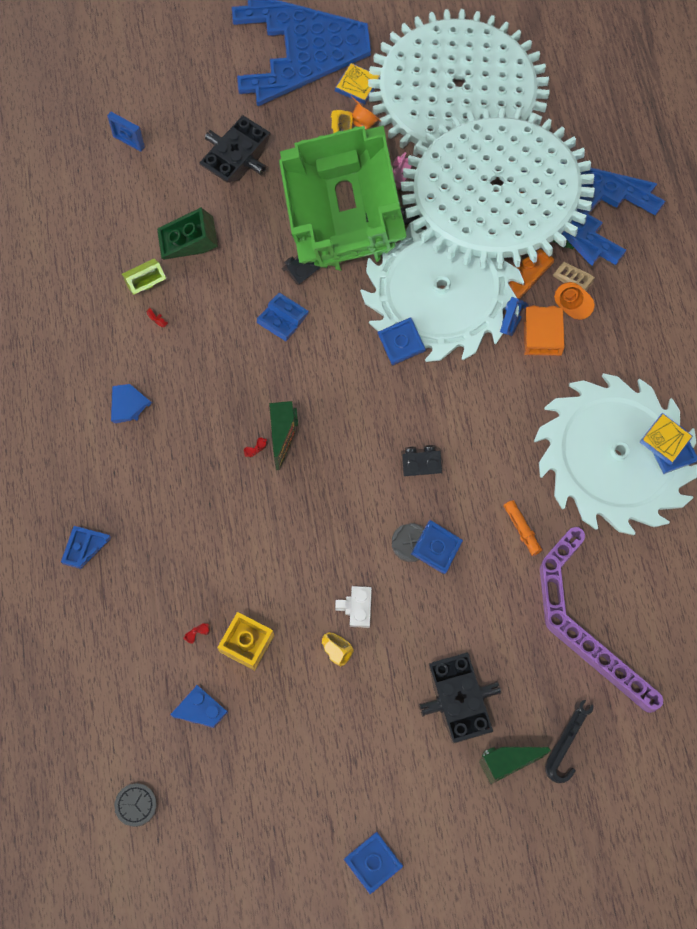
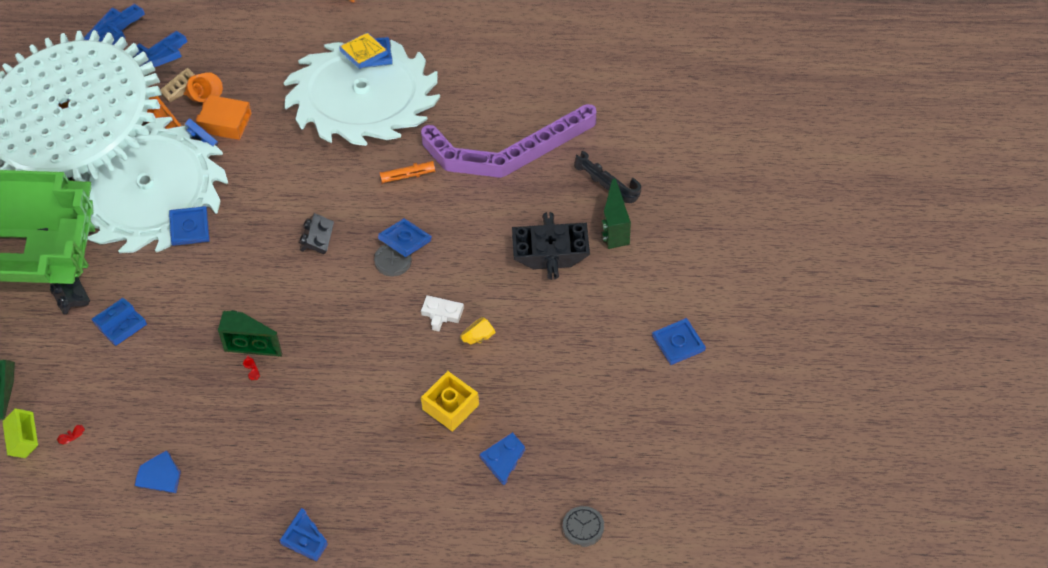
camera: 75 degrees left, 15 degrees down
(191, 635) = (424, 444): red piece -> none

